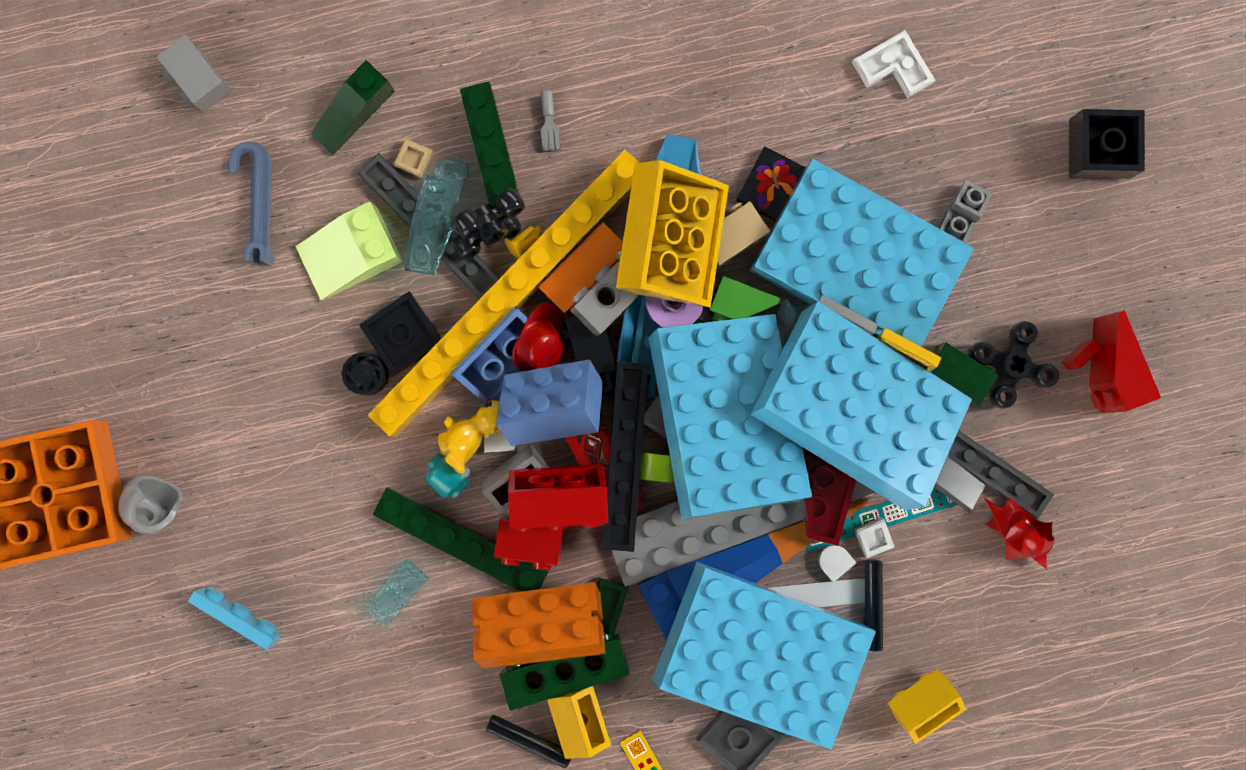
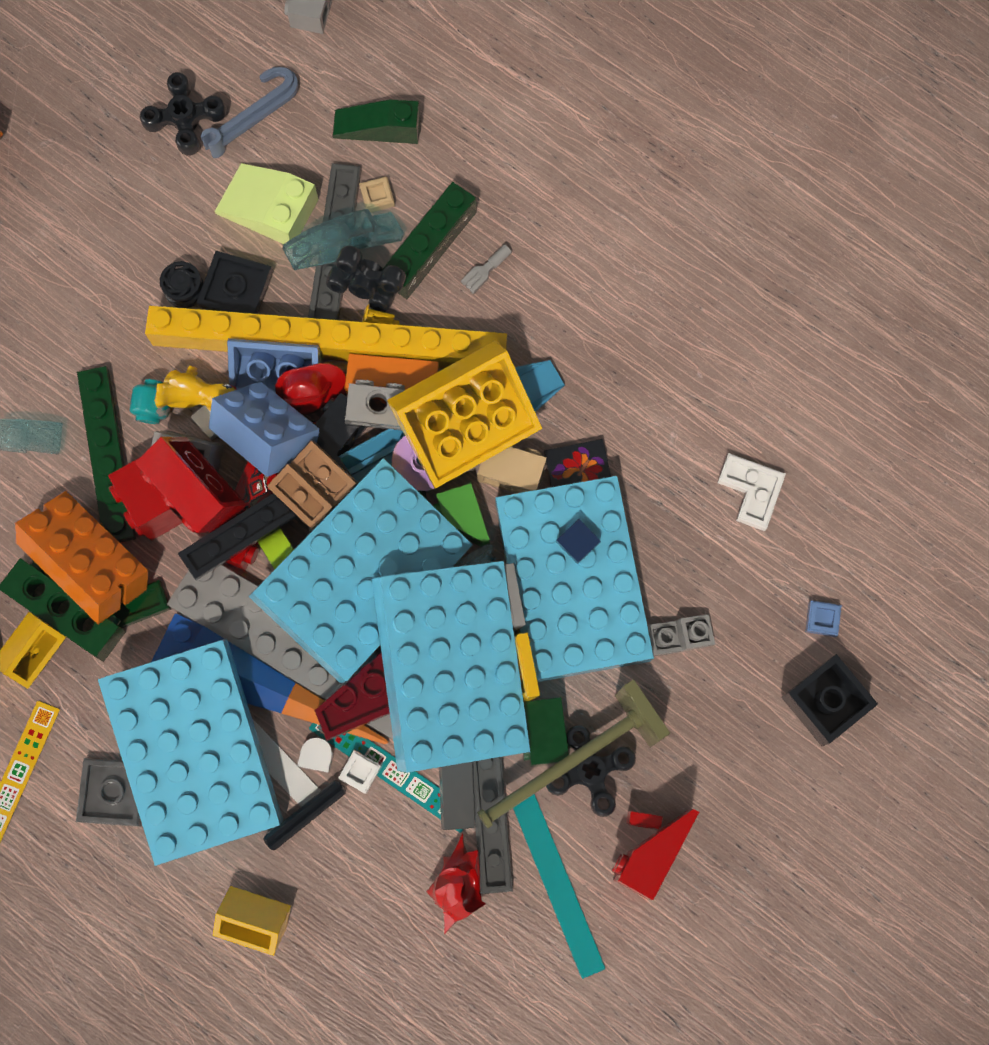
camera: 50 degrees right, 10 degrees down
(204, 253) = (183, 113): none -> black gear
(630, 400) = (312, 484): none -> medium nougat slope
(844, 230) = (578, 541): none -> dark blue tile
(1006, 294) = (639, 715): none -> olive tile
(1036, 96) = (823, 618): none -> medium blue tile
(1071, 456) = (558, 887): none -> teal sticker

